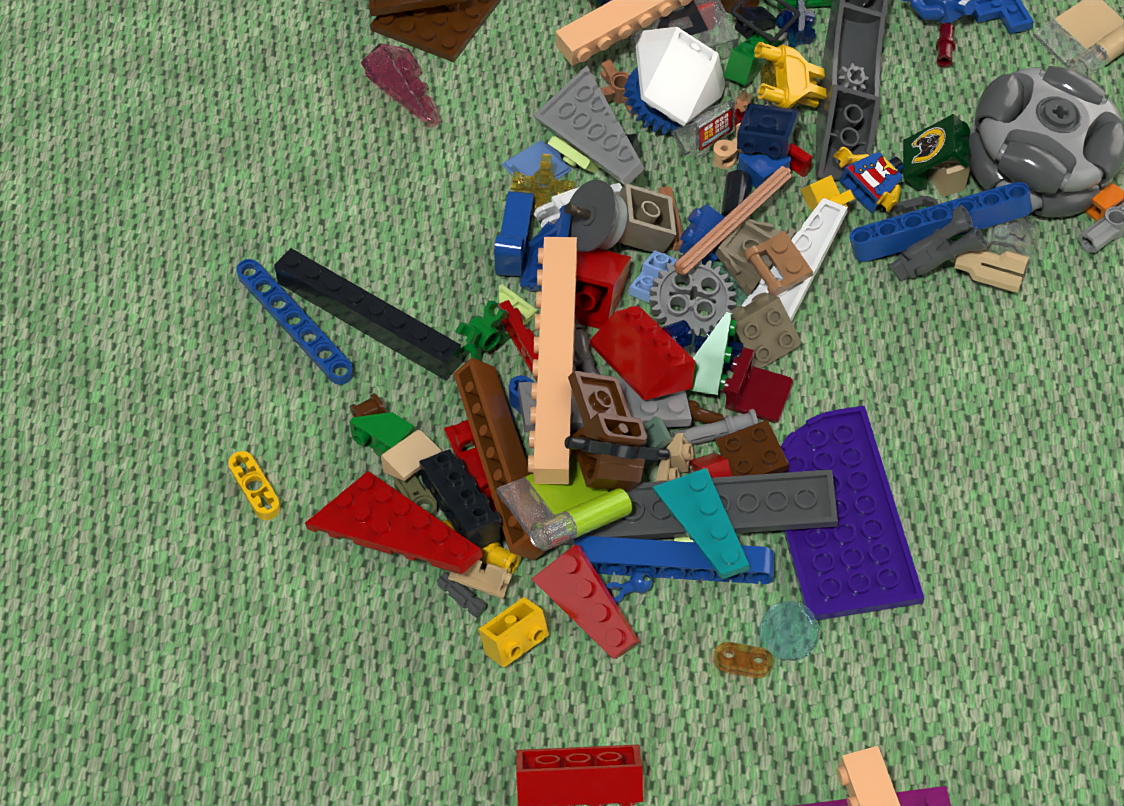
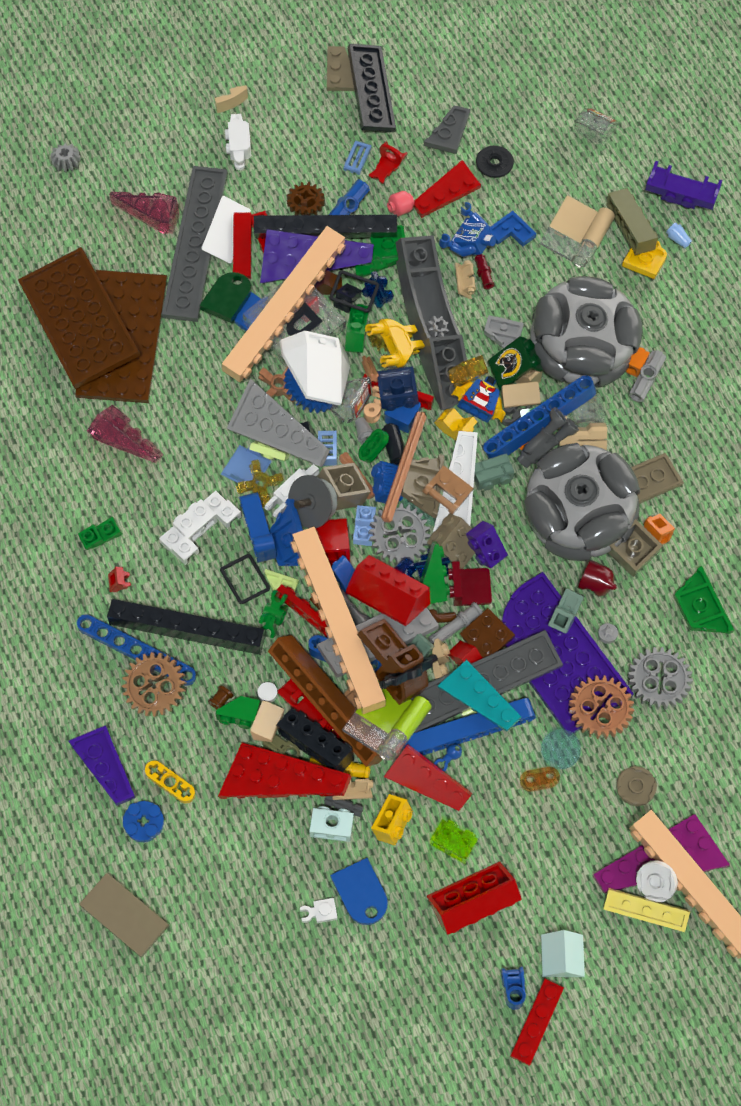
camera: 25 degrees left, 10 degrees up
(112, 621) = (124, 915): none -> dark tan tile
(184, 433) = (104, 763): none -> dark purple wing
(192, 505) = (136, 812): none -> blue plate
(292, 364) = (145, 668): none -> medium nougat gear
(312, 234) = (116, 579): none -> red tile
(314, 181) = (98, 535): none -> green slope
(367, 715) = (323, 911): none -> white plate
(430, 708) = (359, 891): none -> blue tile
(432, 425) = (267, 692): none -> white tile
(440, 623) = (340, 832): none -> light aqua brick
(441, 204) = (196, 522): none -> white bracket
(449, 286) = (258, 571): none -> black piece
(585, 692) = (454, 841): none -> clear neon green brick
(593, 312) = (343, 572): none -> blue slope
(656, 178) = (331, 460): none -> light blue slope
(704, 174) = (363, 429): none -> light grey cone
(707, 188) = (373, 445): none -> green plate
(800, 345) = (486, 544): none -> dark purple brick
(851, 268) = (493, 472): none -> sand green brick
(868, 595) = (586, 697): none -> nougat gear
(869, 135) = (468, 371): none -> clear yellow brick
(870, 462) = (566, 611): none -> sand green brick
(873, 728) = (631, 790): none -> dark tan tile
(916, 44) = (465, 285): none -> tan hinge
(922, 512) = (607, 633): none -> light grey tile
(928, 188) = (520, 394): none -> tan slope
(933, 109) = (502, 330): none -> light grey wing
(934, 437) = (597, 579): none -> dark red piece
(954, 333) = (592, 498): none -> piece
(997, 603) = (678, 680): none -> light grey gear
(1004, 417) = (637, 550): none -> dark tan brick
(1049, 408) = (659, 528): none -> orange brick
(1051, 347) = (656, 477): none -> dark tan tile
(1072, 523) = (702, 606): none -> green wing

